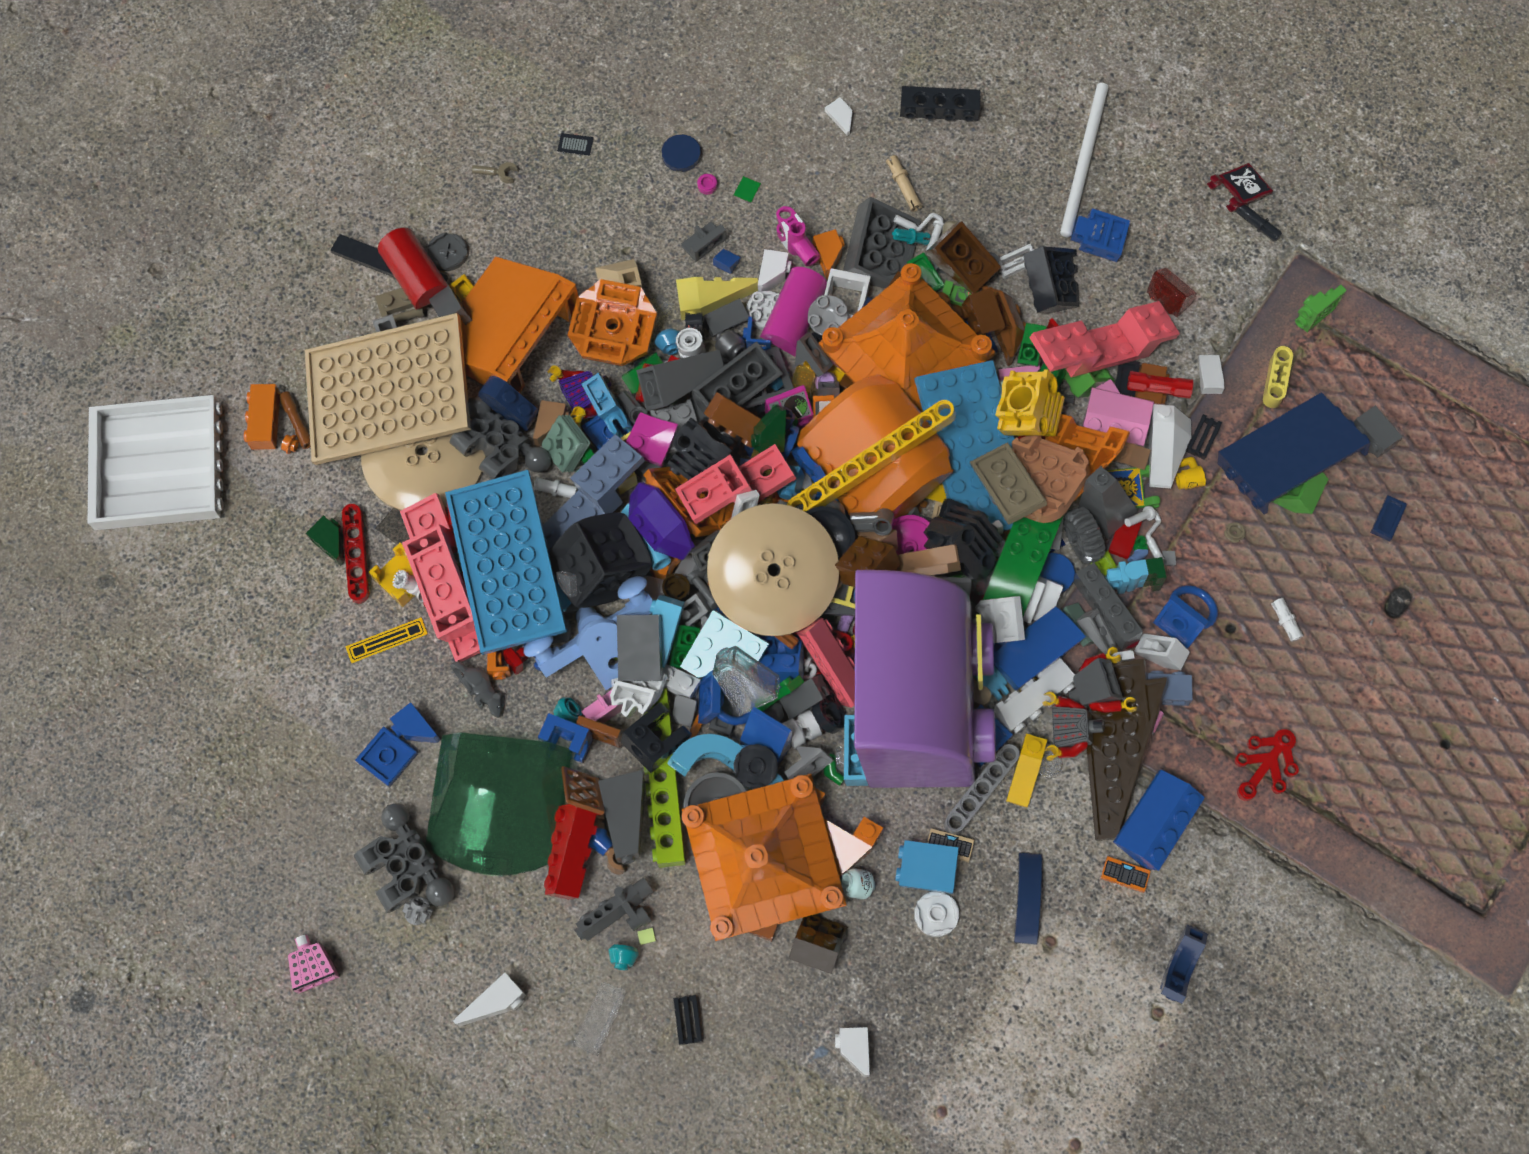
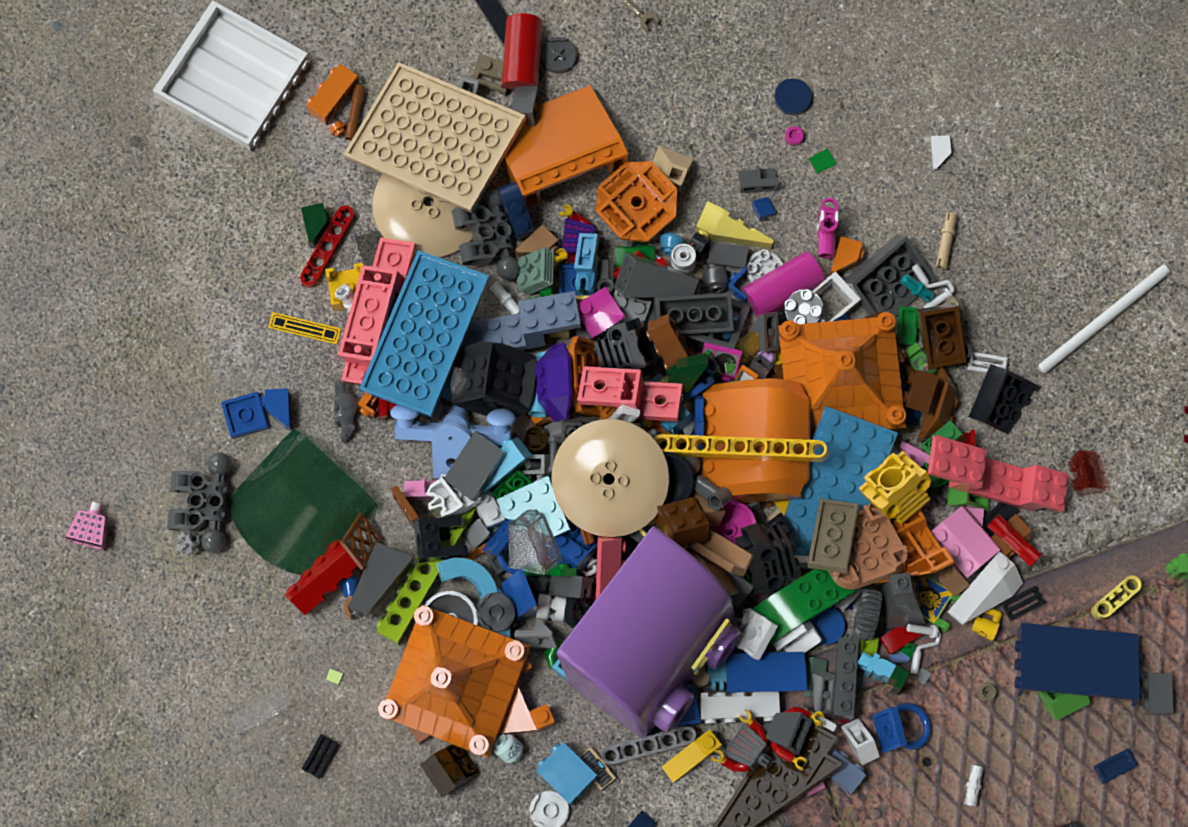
camera: 30 degrees right, 5 degrees up
(461, 287) = (548, 91): yellow slope -> none
(495, 1000) = (199, 645): white slope -> none
(557, 727) = (374, 481): blue panel -> none
(567, 709) = (394, 474): teal cone -> none
(575, 144) = (717, 33): black sticker -> none
(614, 908) = (323, 640): dark grey piece -> none
(622, 956) = (306, 679): teal cone -> none
(773, 269) = (792, 241): white slope -> none
(948, 97) = (1034, 195): black brick -> none
(1101, 234) = (1068, 389): blue piece -> none
(1210, 374) = (1067, 558): white slope -> none

